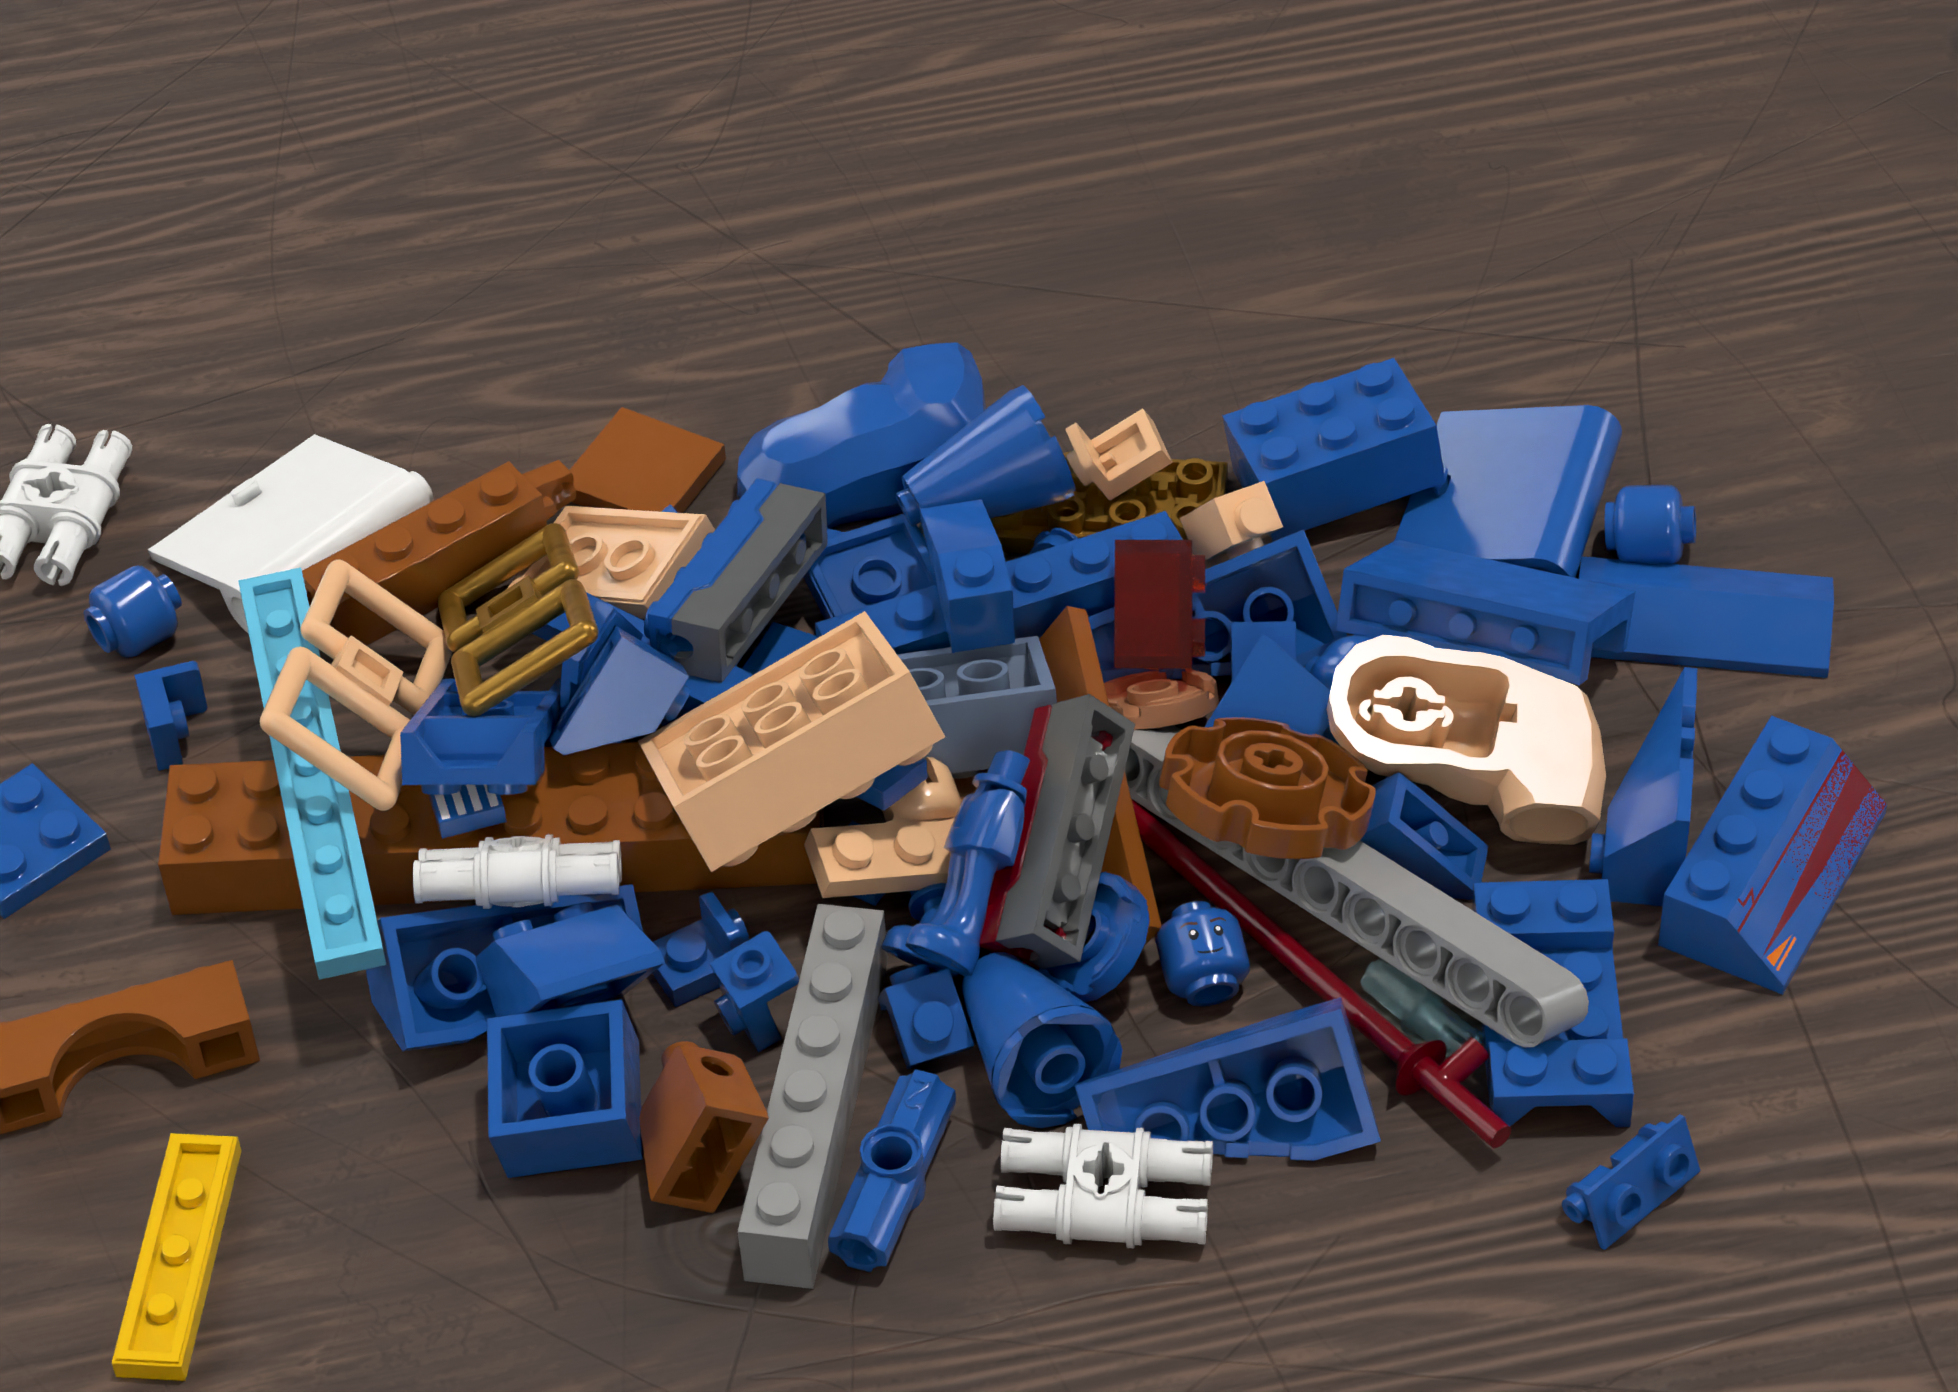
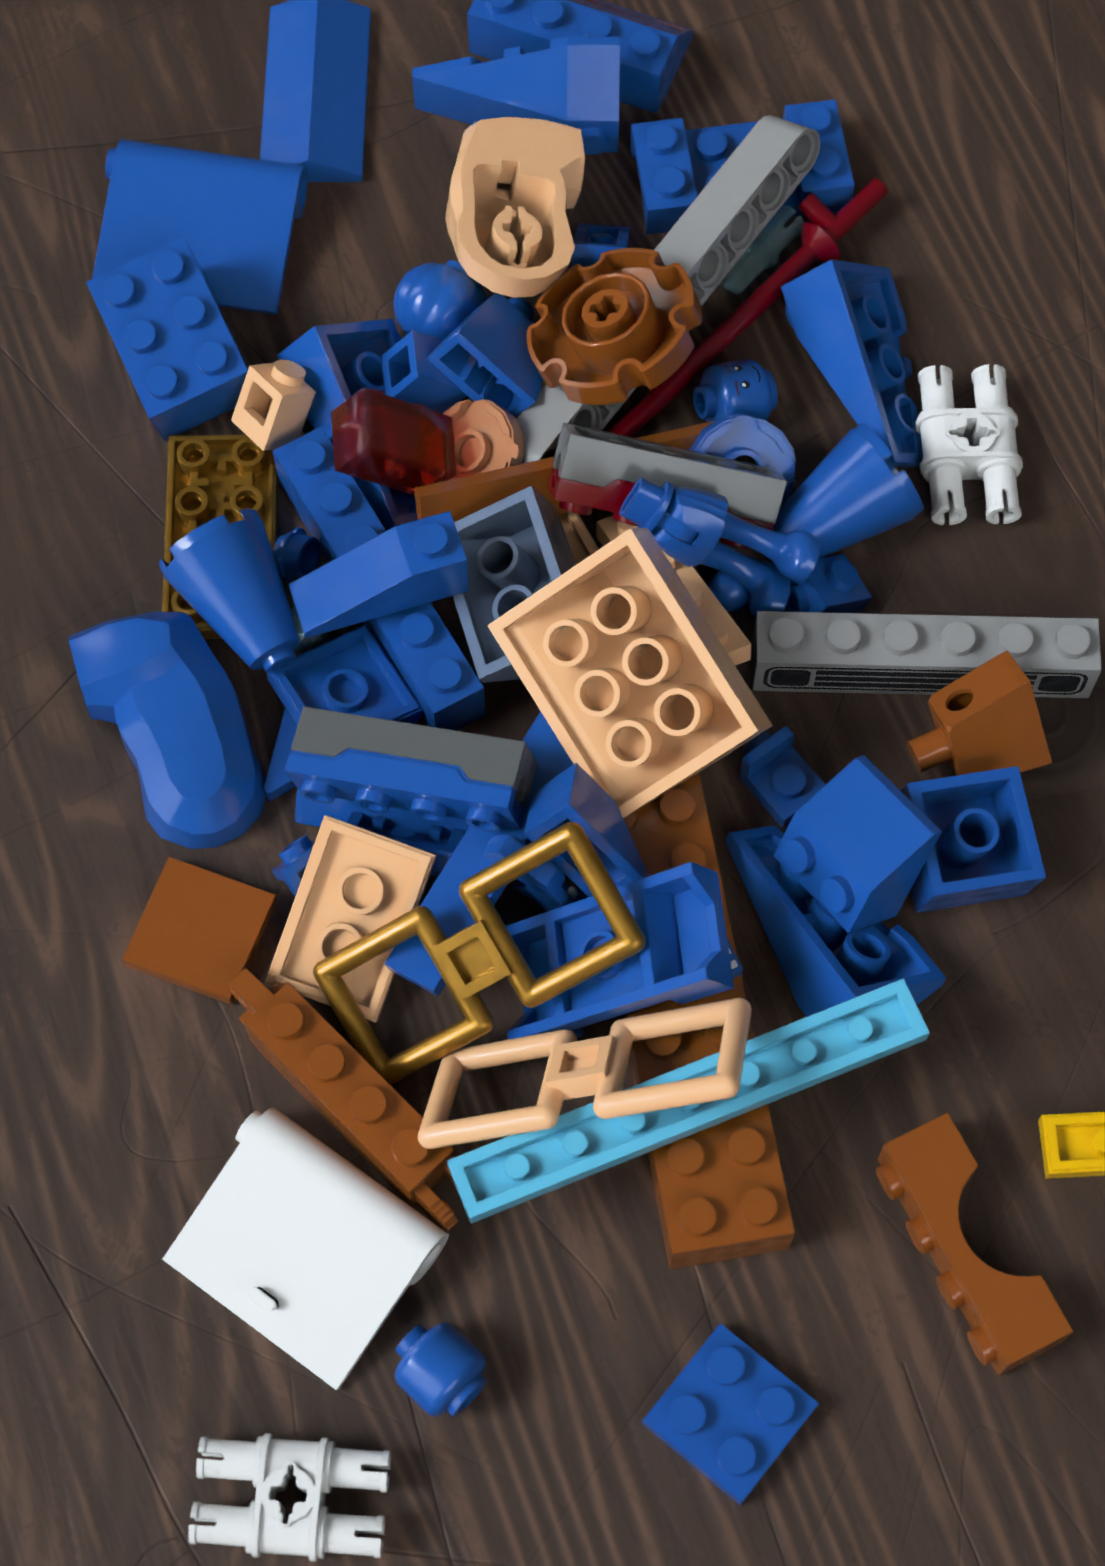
camera: 100 degrees left, 20 degrees up
(166, 700) = (577, 1303): blue bracket -> none
(517, 871) = (774, 899): white pin -> none
(748, 980) = (838, 707): blue bracket -> none
(884, 1196) = (951, 584): blue piece -> none
(1119, 455) = (196, 492): light nougat bracket -> none
(1484, 608) = (375, 202): blue panel -> none
(1641, 1179) = (911, 119): blue hinge -> none
(1649, 524) = (233, 119): blue head -> none

